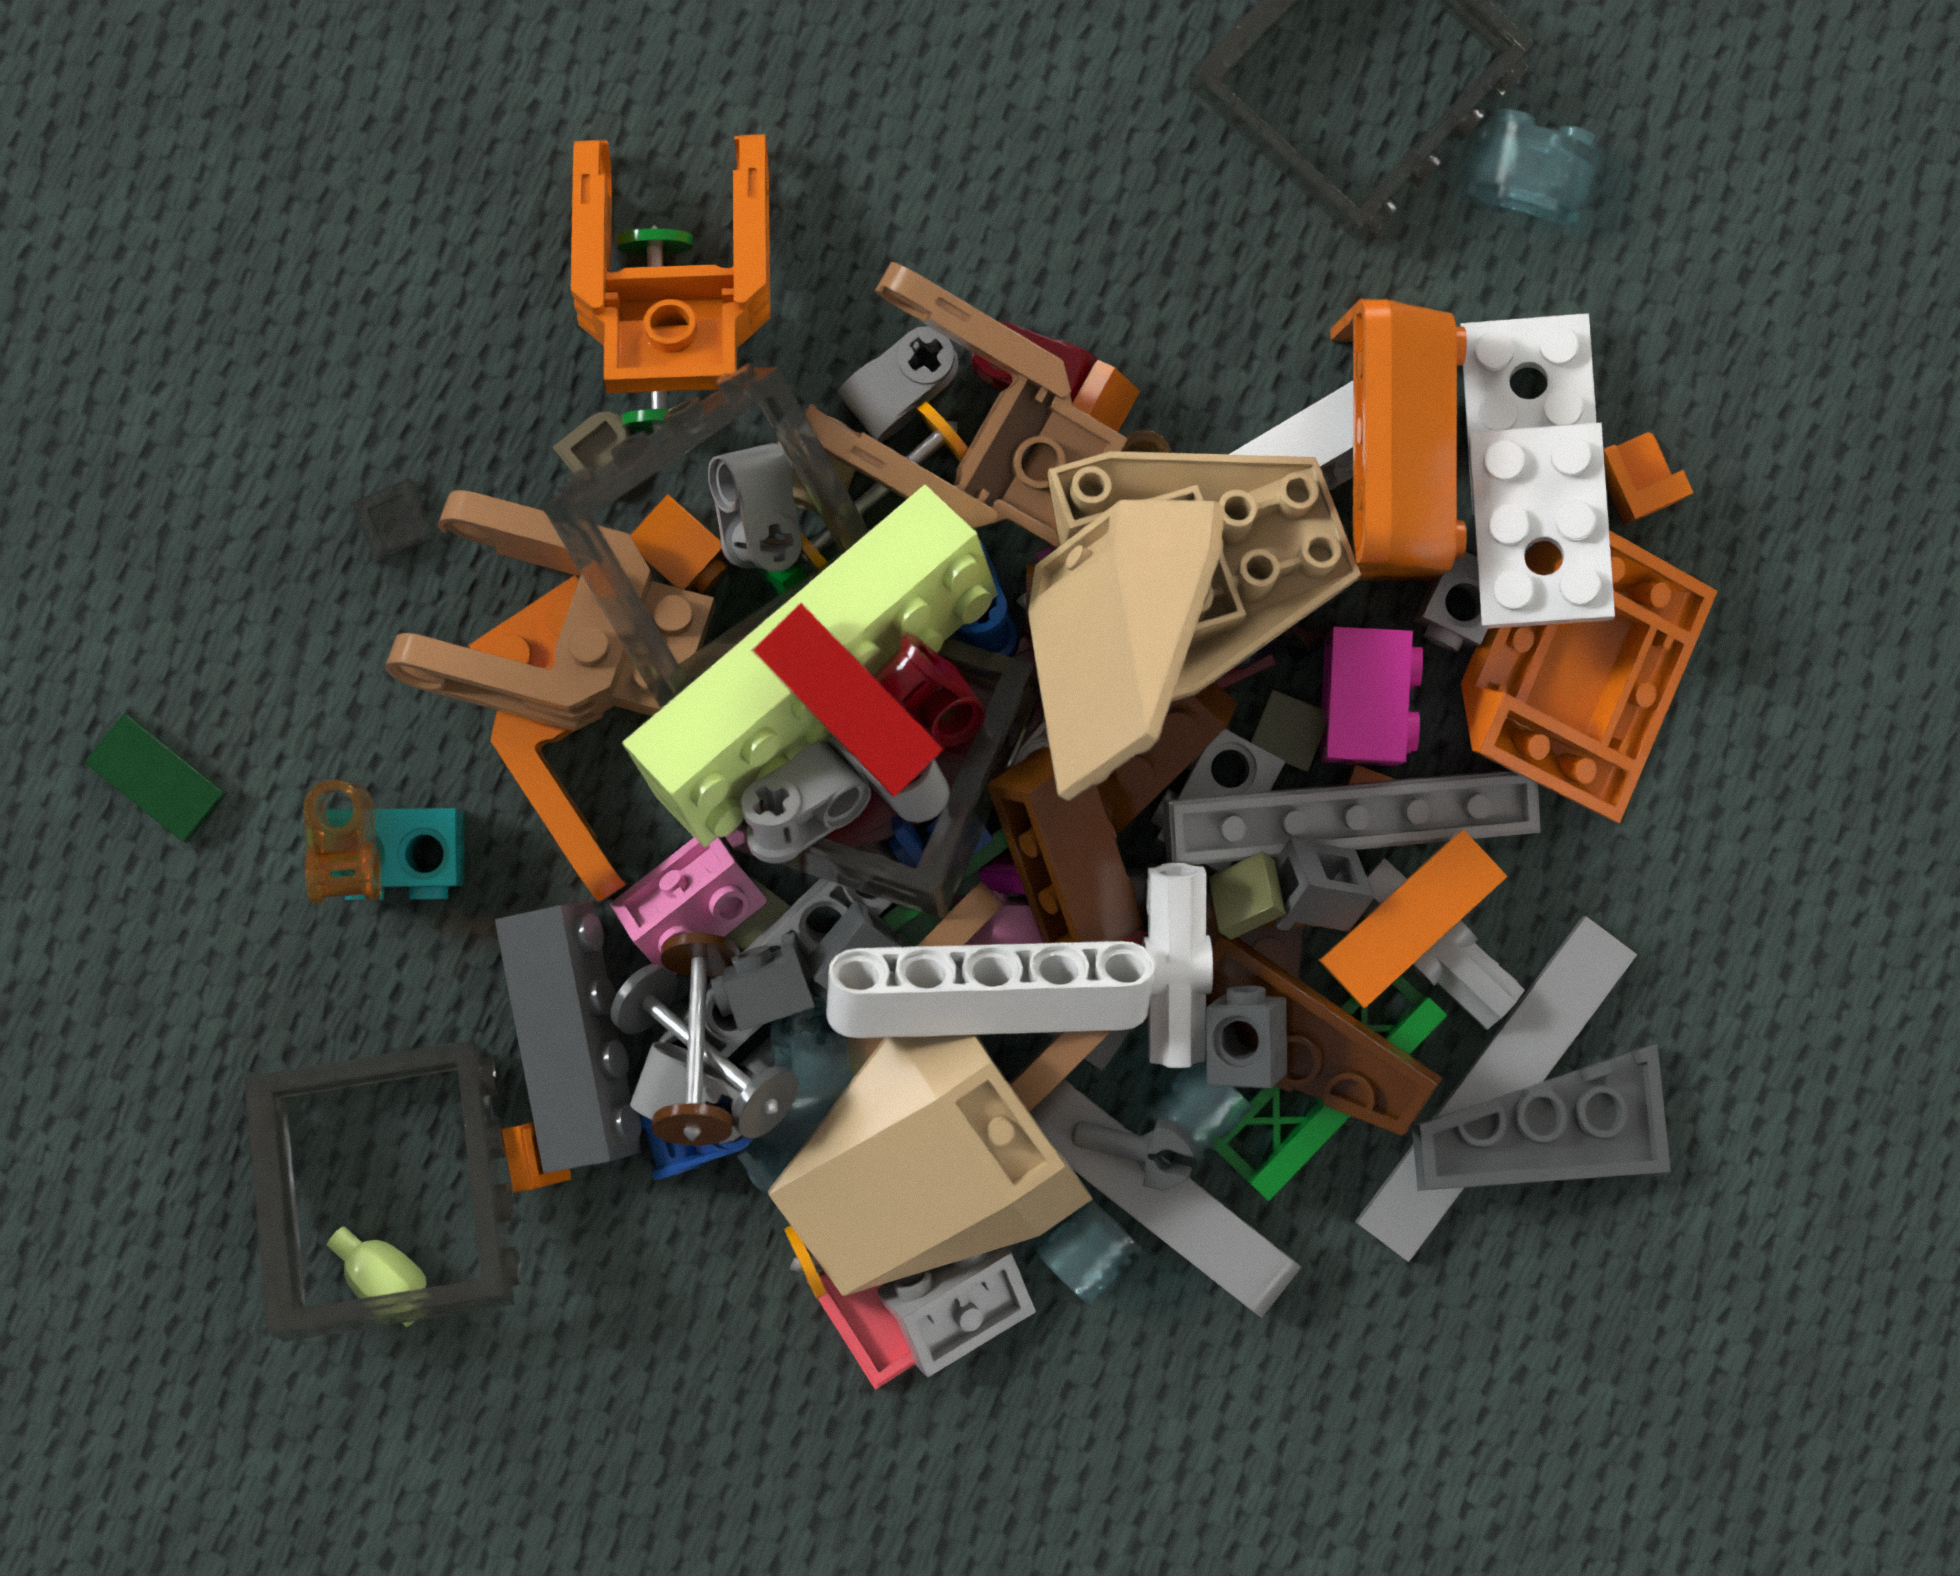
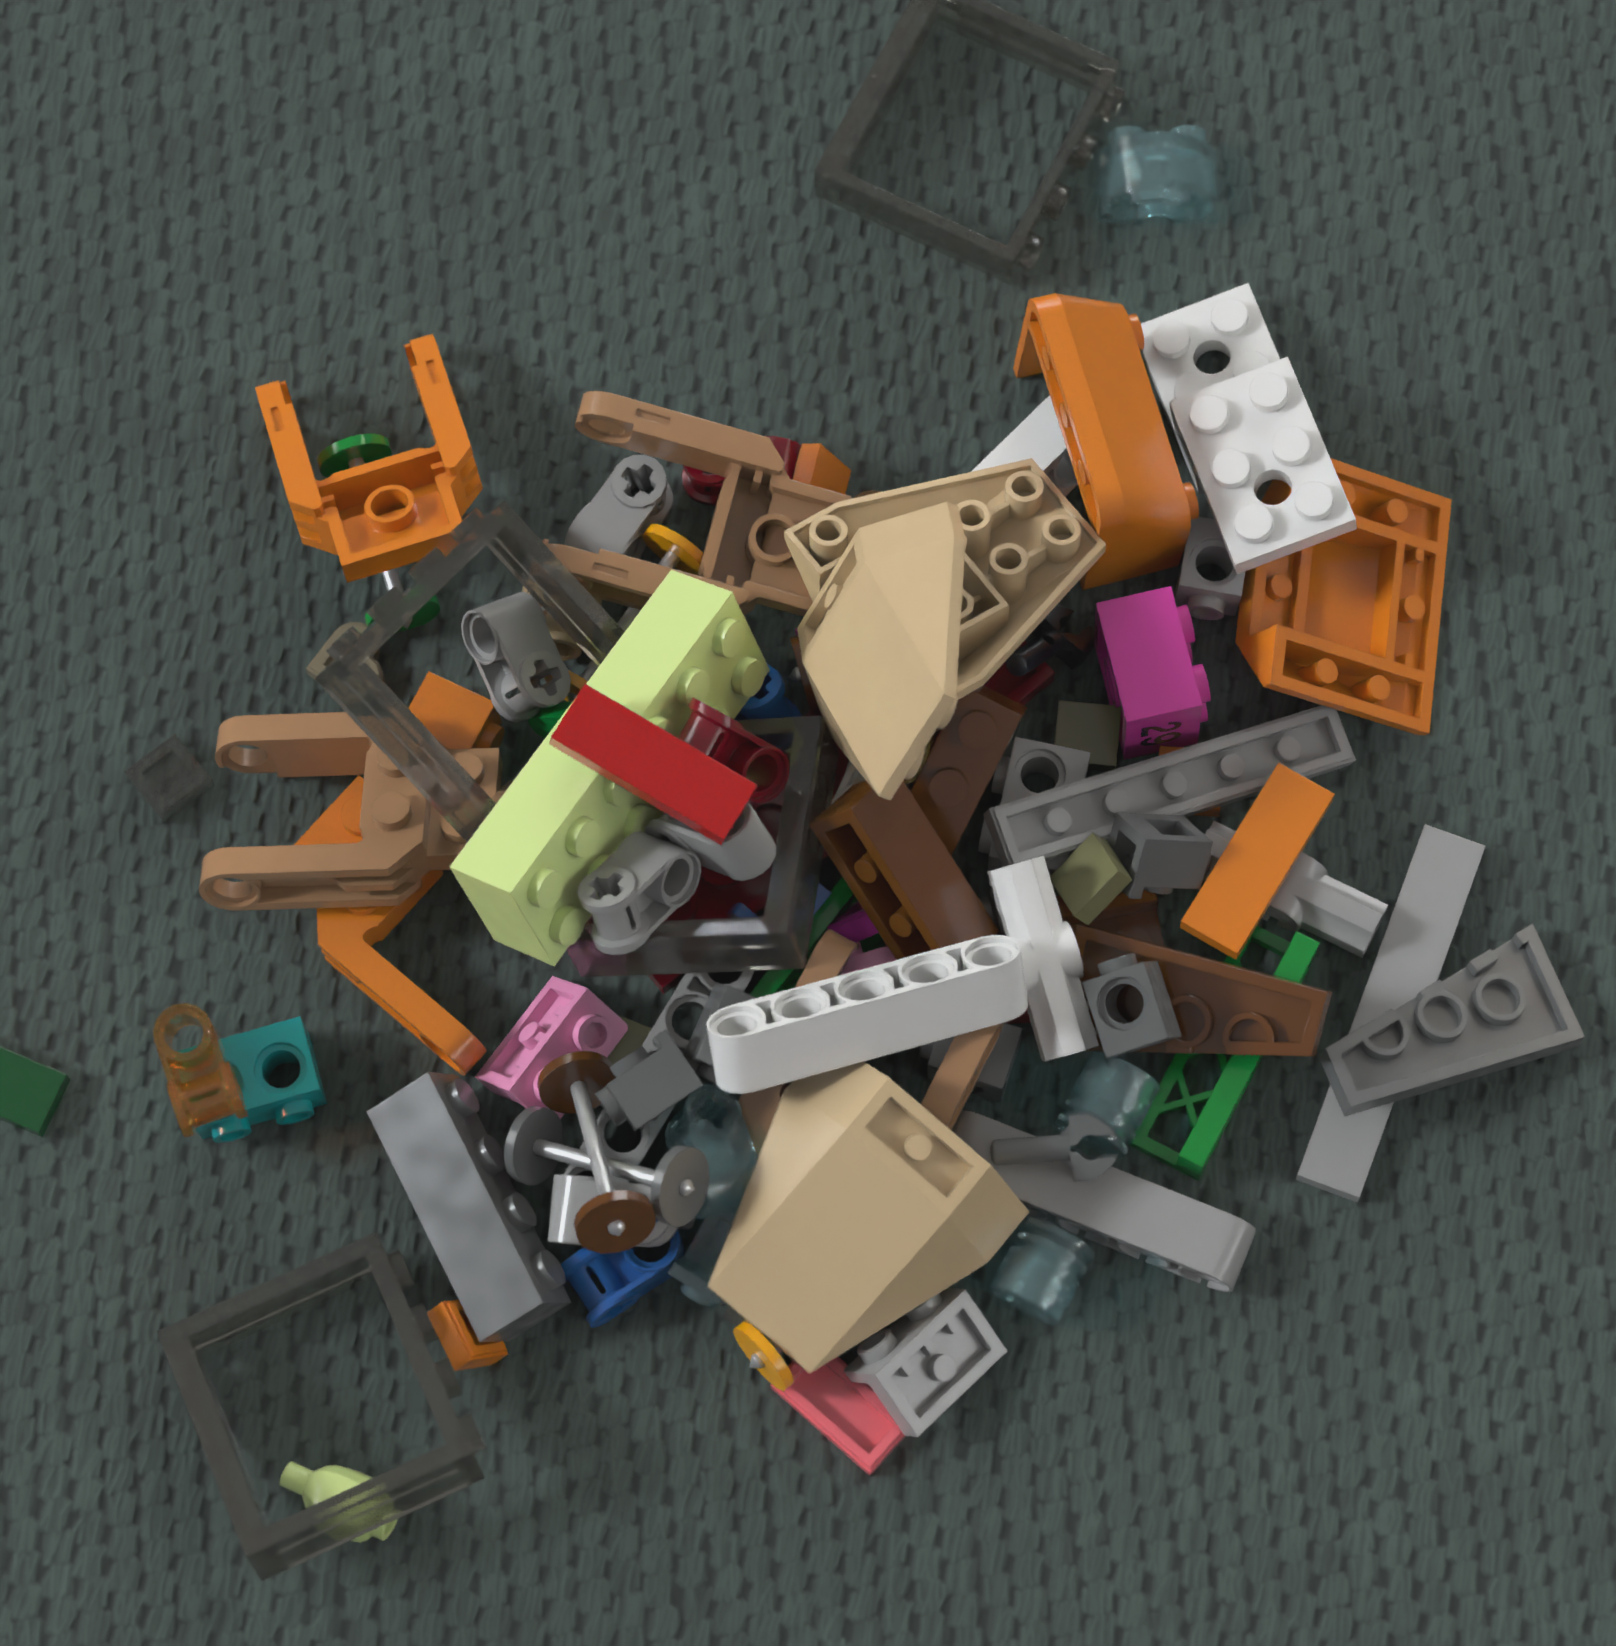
camera: 10 degrees left, 15 degrees down
(1641, 478) = (1348, 420): orange panel -> none

